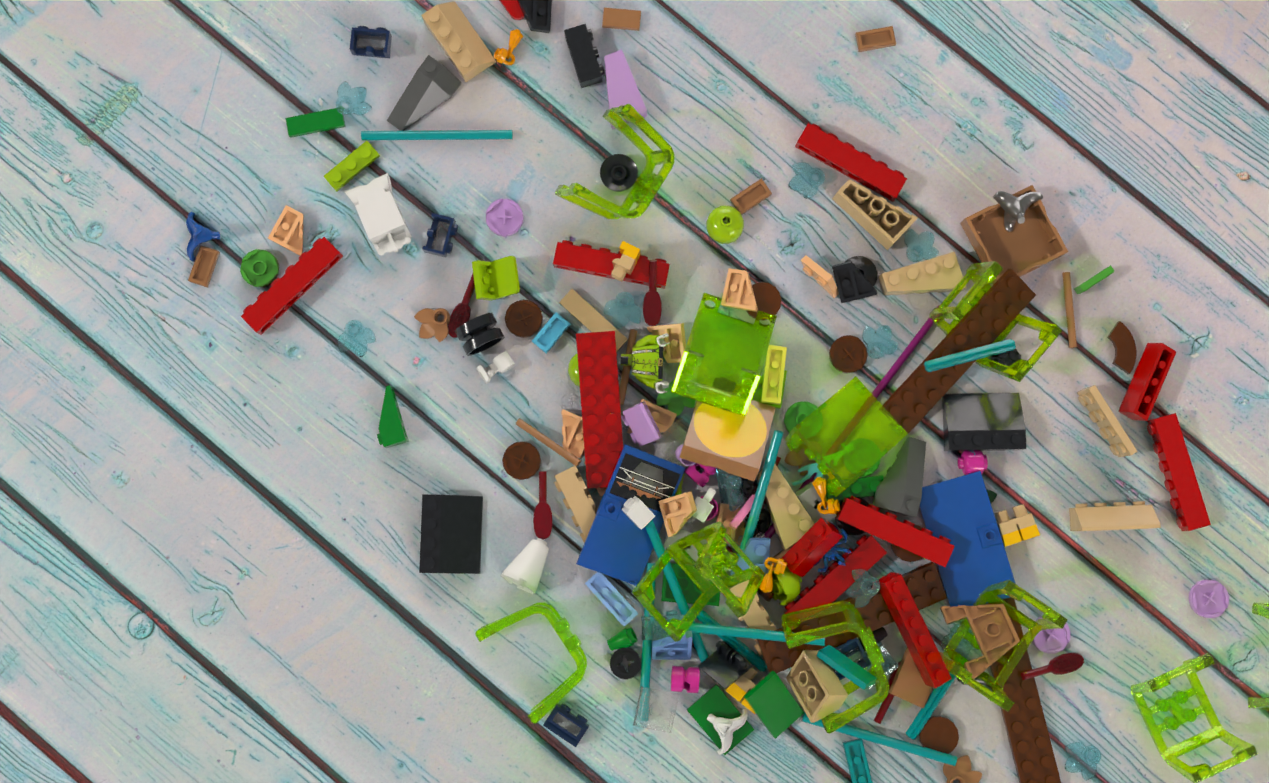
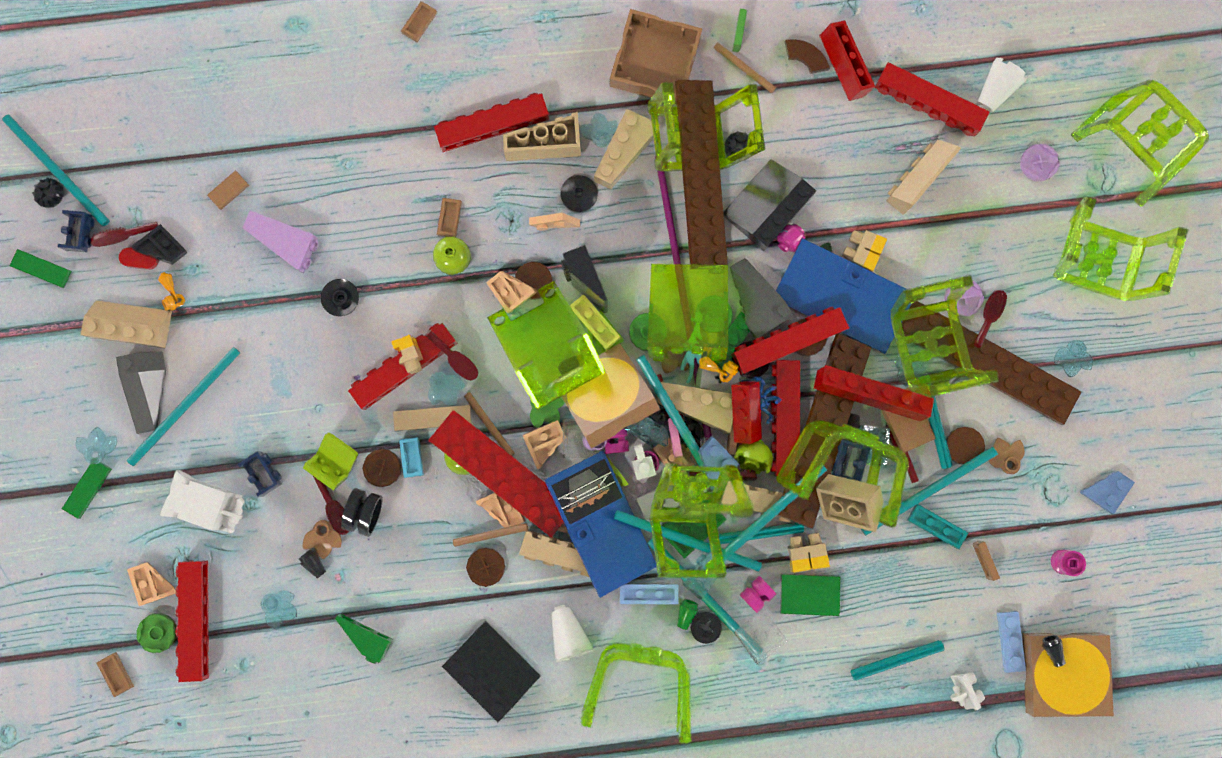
camera: 45 degrees left, 0 degrees up
(198, 235) = (87, 657): blue piece -> none
(351, 166) = (145, 491): lime plate -> none
(370, 42) = (65, 391): dark blue window -> none
(409, 333) = (312, 563): none -> black cone
(500, 364) = (398, 515): white leg -> none
(504, 217) = (293, 412): lavender tile -> none
(542, 514) = (539, 587): dark red piece -> none
(566, 724) = (711, 714): dark blue window -> none
(584, 55) = (228, 242): black brick -> none
(637, 512) = (603, 516): white brick -> none
(641, 423) = (540, 453): lavender slope -> none
(647, 183) = (366, 282): clear neon green windscreen -> none
(648, 361) = (499, 405): lime torso -> none
(669, 650) = (724, 587): medium blue wing -> none
(674, 351) = (499, 375): light nougat wing -> none
(677, 511) = (630, 487): light nougat wing -> none
(725, 665) = (774, 555): black hinge -> none
(726, 727) = (820, 596): white piece -> none
(767, 582) = (740, 448): light orange piece -> none
(773, 704) = (835, 546): green tile -> none
(799, 335) = (583, 276): none -> black slope
(803, 179) = (472, 169): clear light blue plate -> none
(846, 667) = (857, 467): teal tile -> none
(848, 354) = (629, 254): reddish brown tile -> none
(851, 282) = (580, 203): black wing -> none
(860, 588) = (808, 402): clear light blue plate -> none
(881, 339) = (639, 221): clear light blue plate -> none
(969, 355) = (712, 168): teal axle -> none
(991, 630) = (925, 337): medium nougat wing -> none
(1015, 206) = (635, 35): flat silver piece -> none
(1107, 422) = (849, 115): tan plate -> none
(1239, 514) = (1000, 84): none -> white cone

